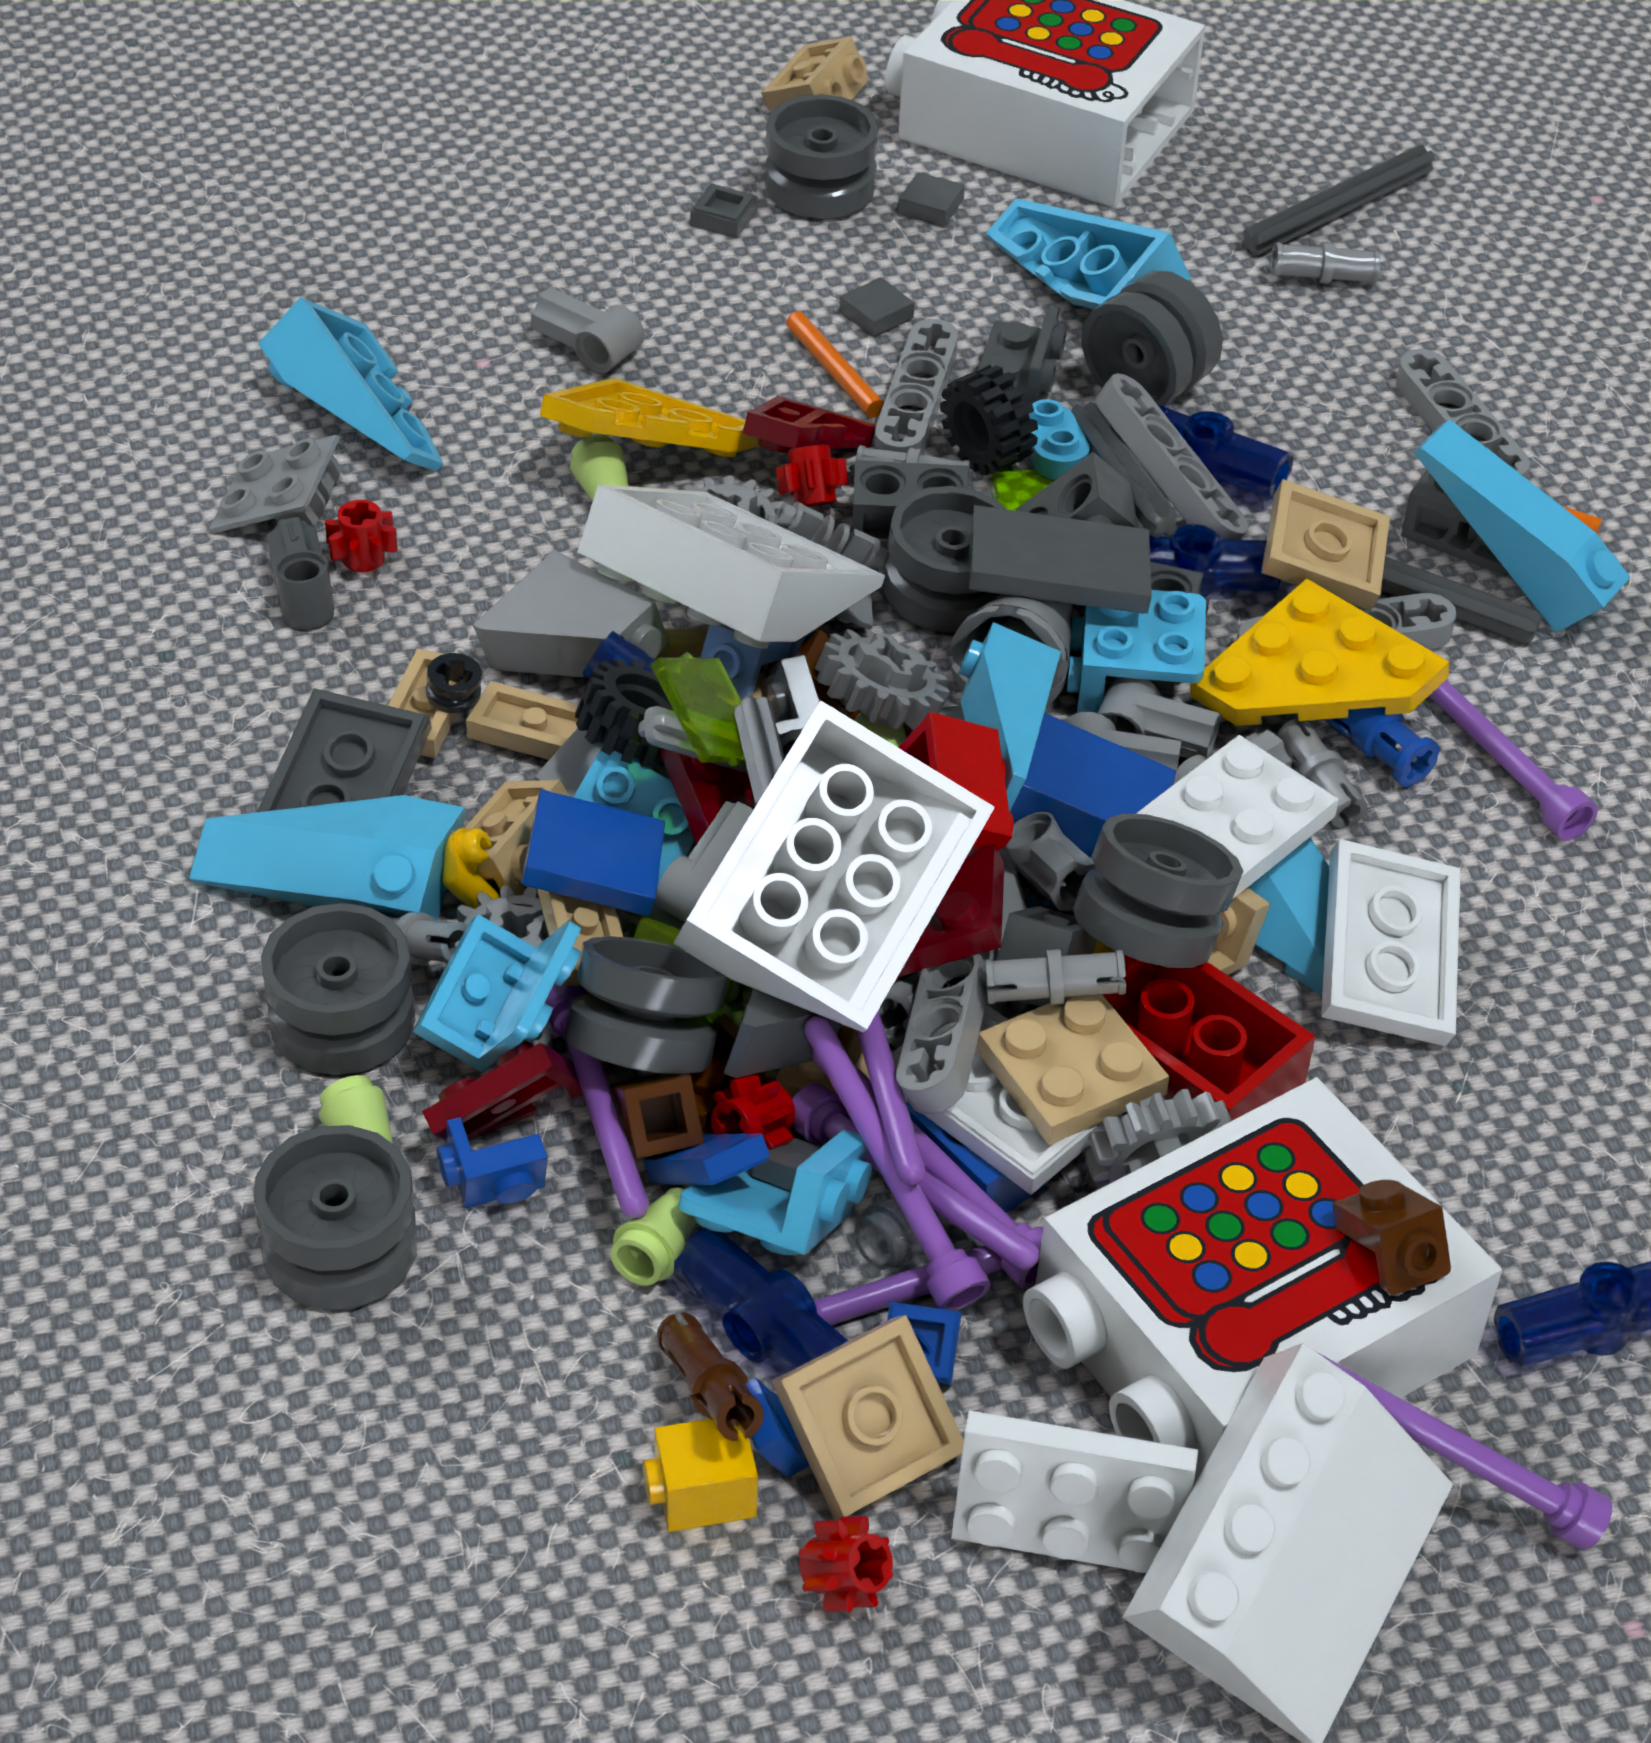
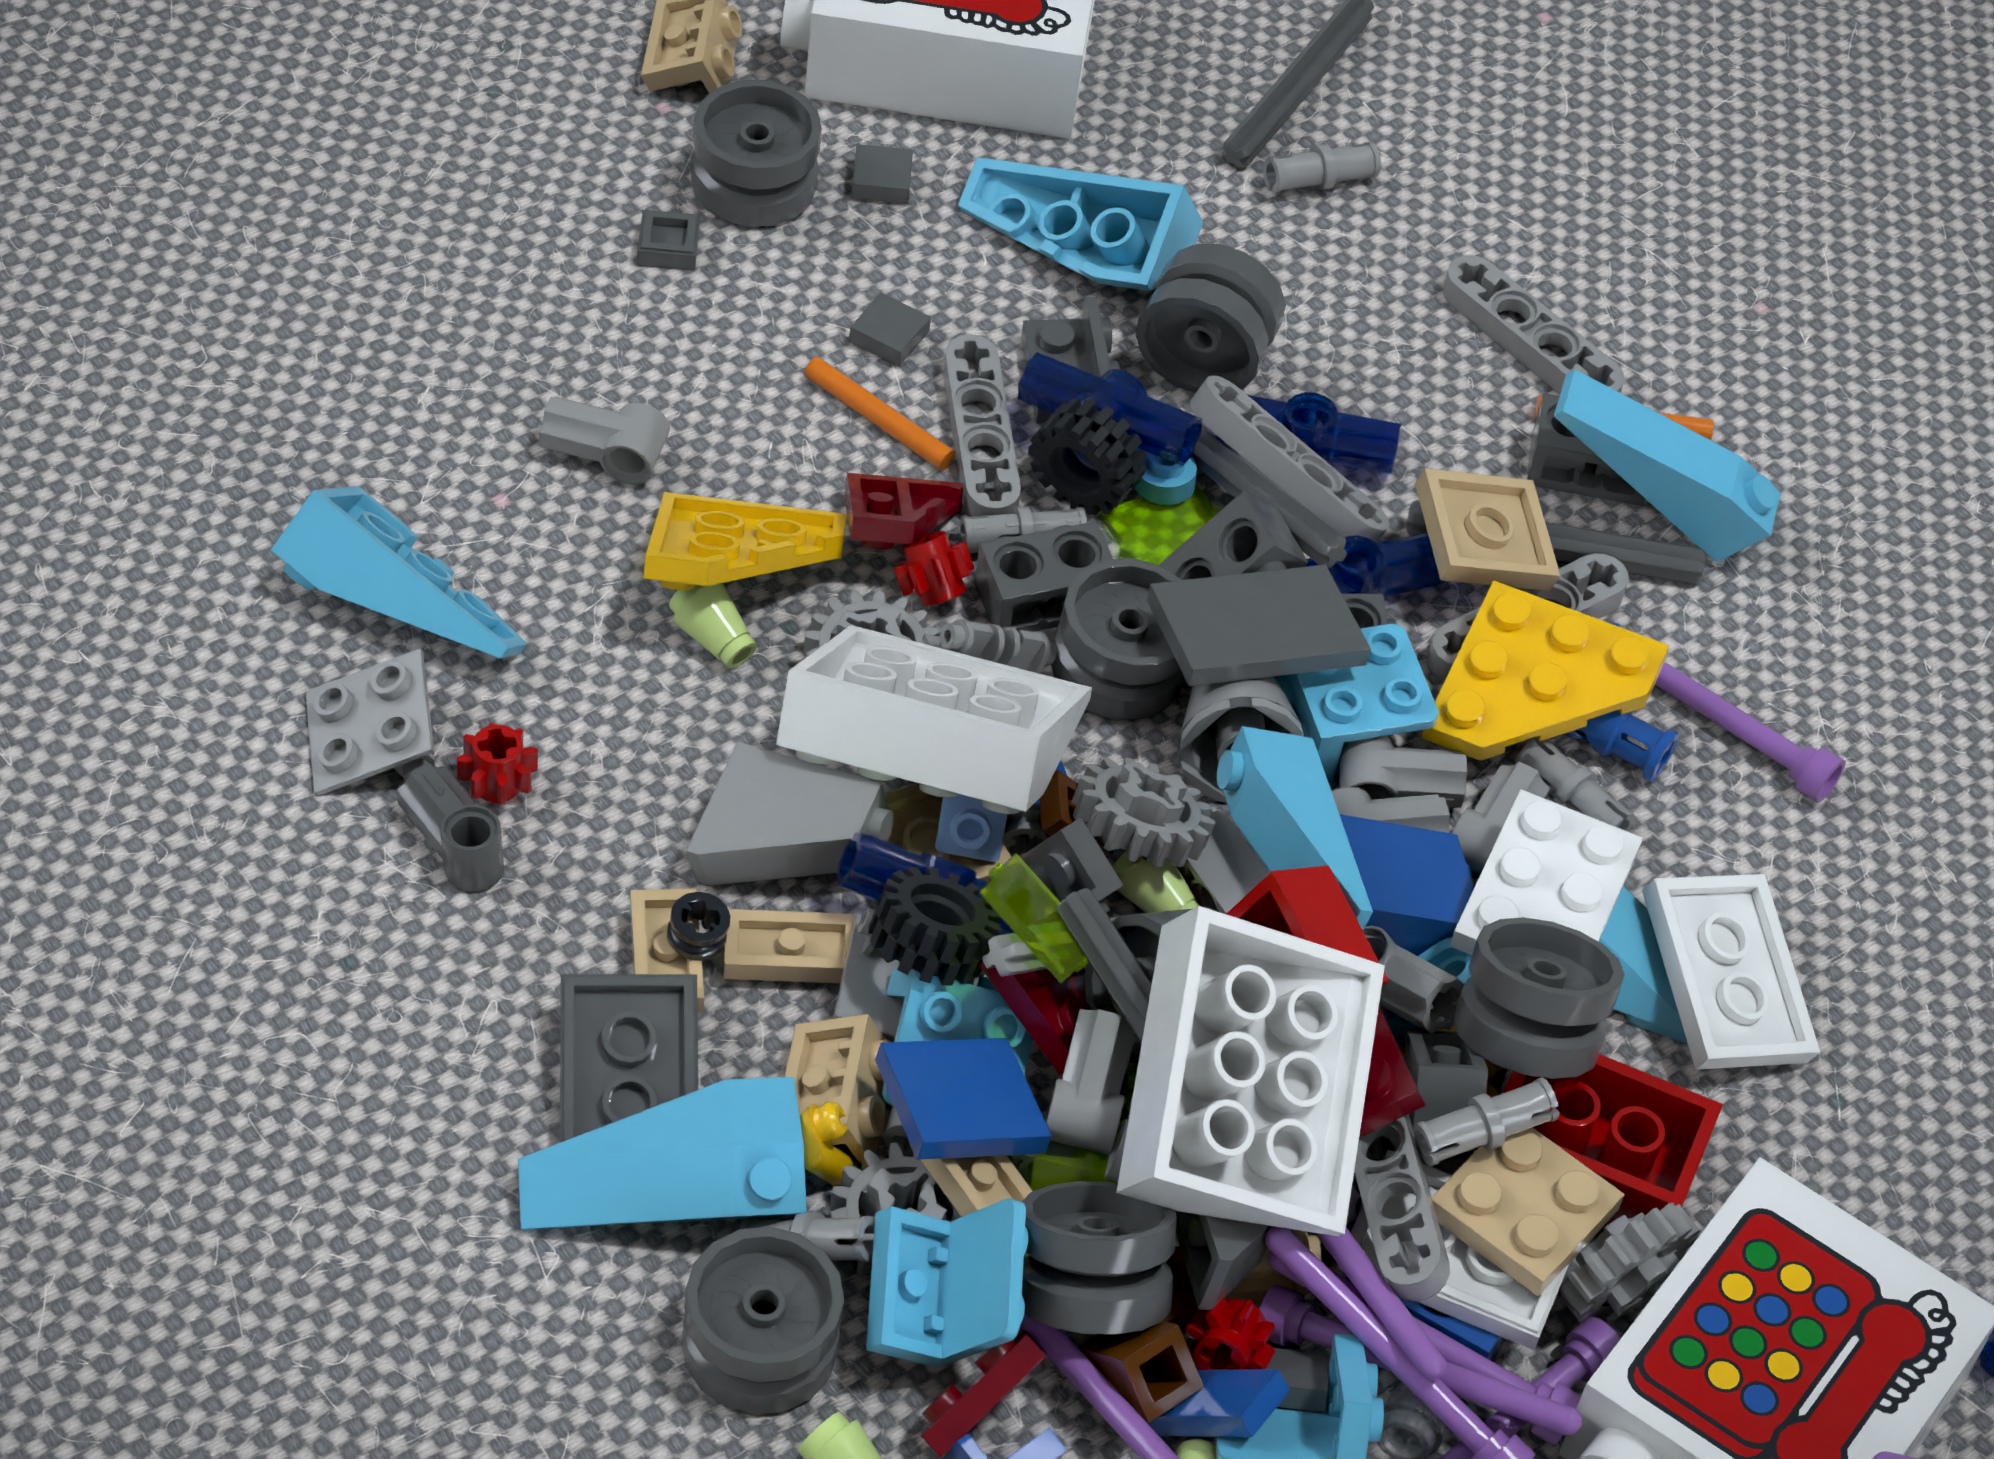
camera: 25 degrees left, 5 degrees up
(1054, 402) = (1160, 426): none -> clear blue piece
(1400, 1229) = (1908, 1302): reddish brown bracket -> none

